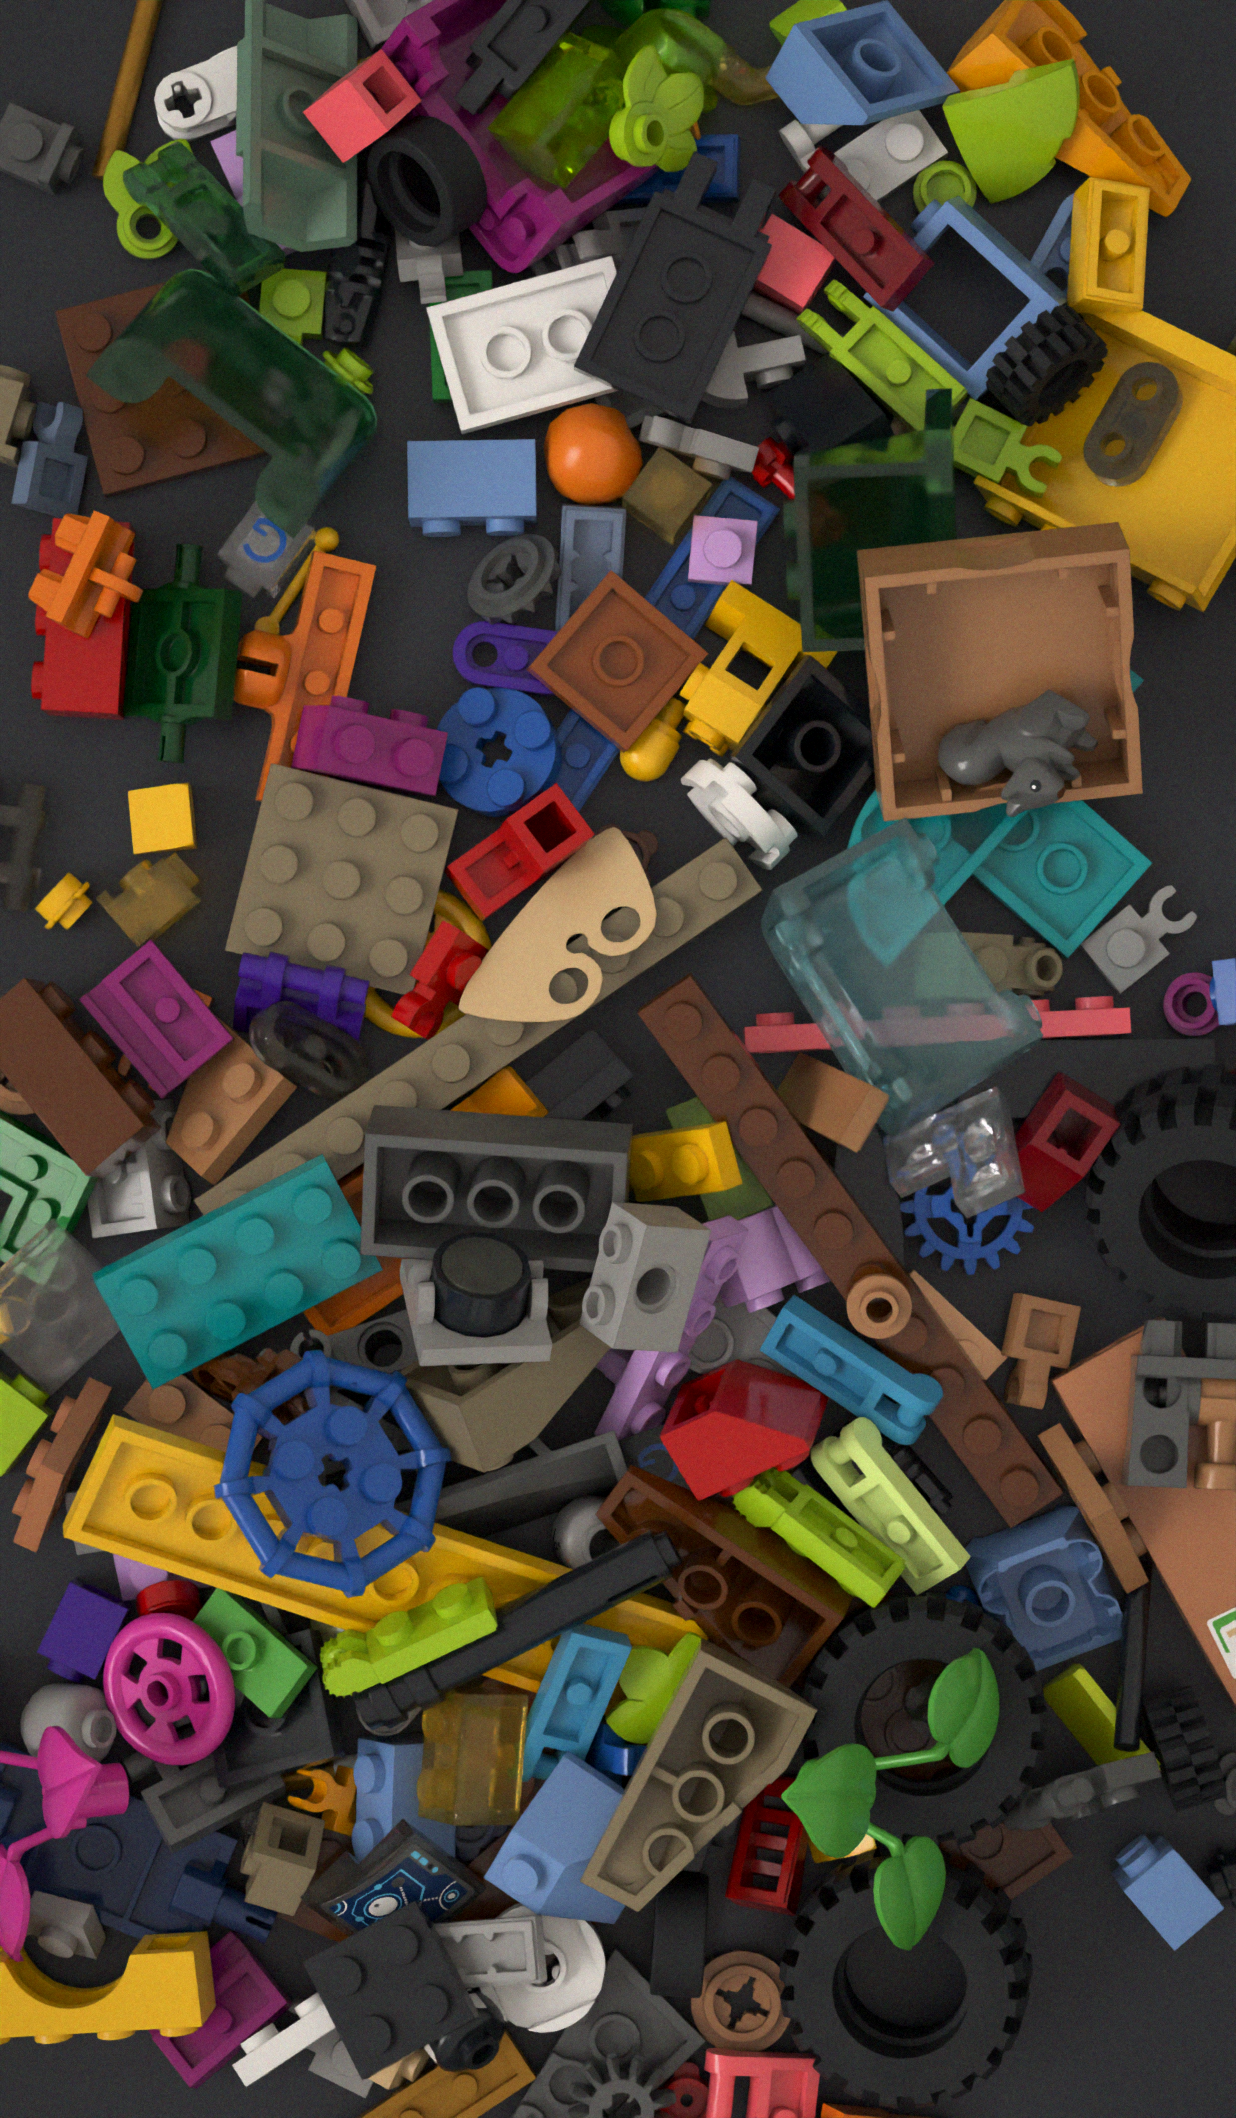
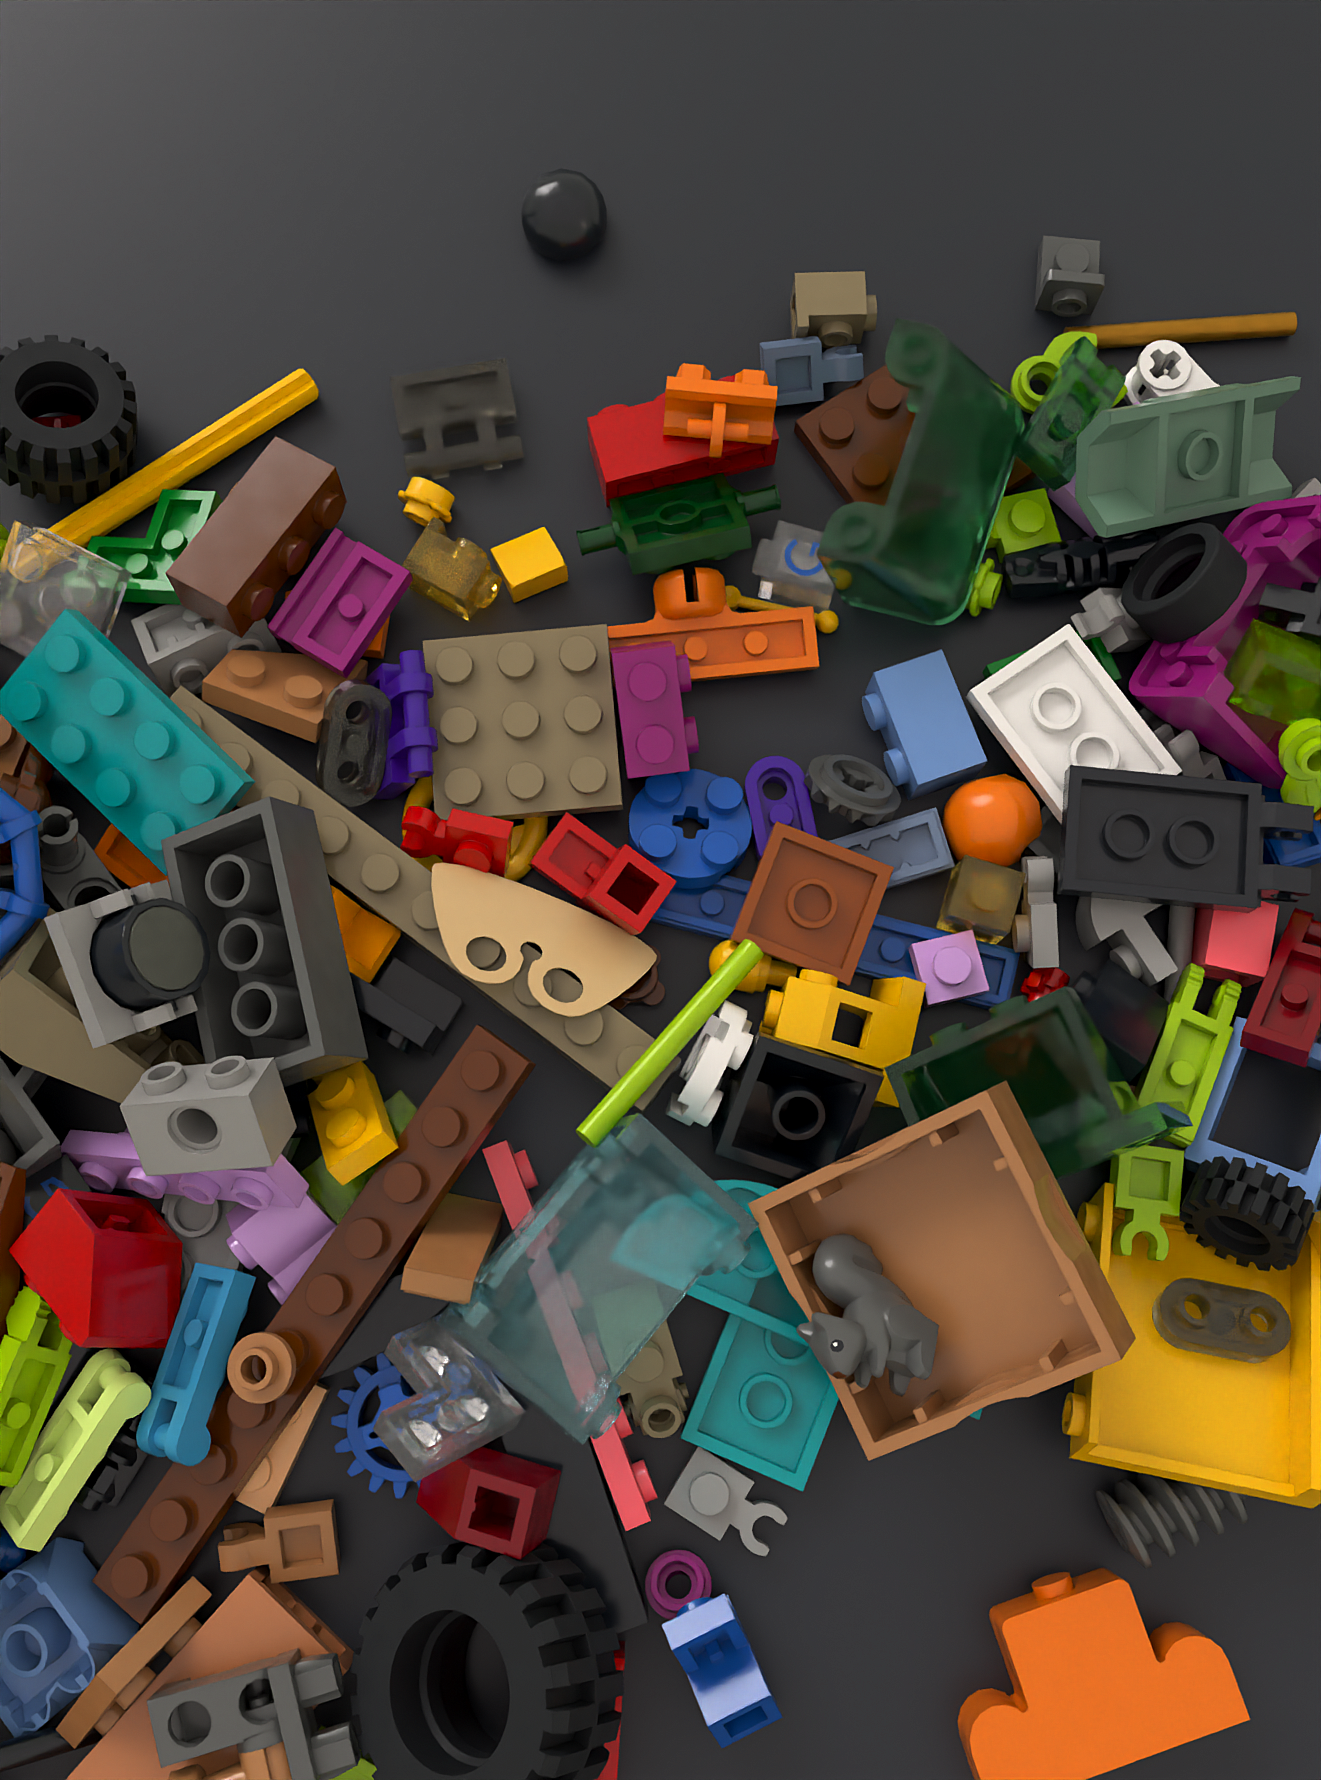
camera: 65 degrees right, 10 degrees down
(362, 106) = (1232, 495): coral brick -> none
(709, 840) = (669, 1043): none -> lime bar

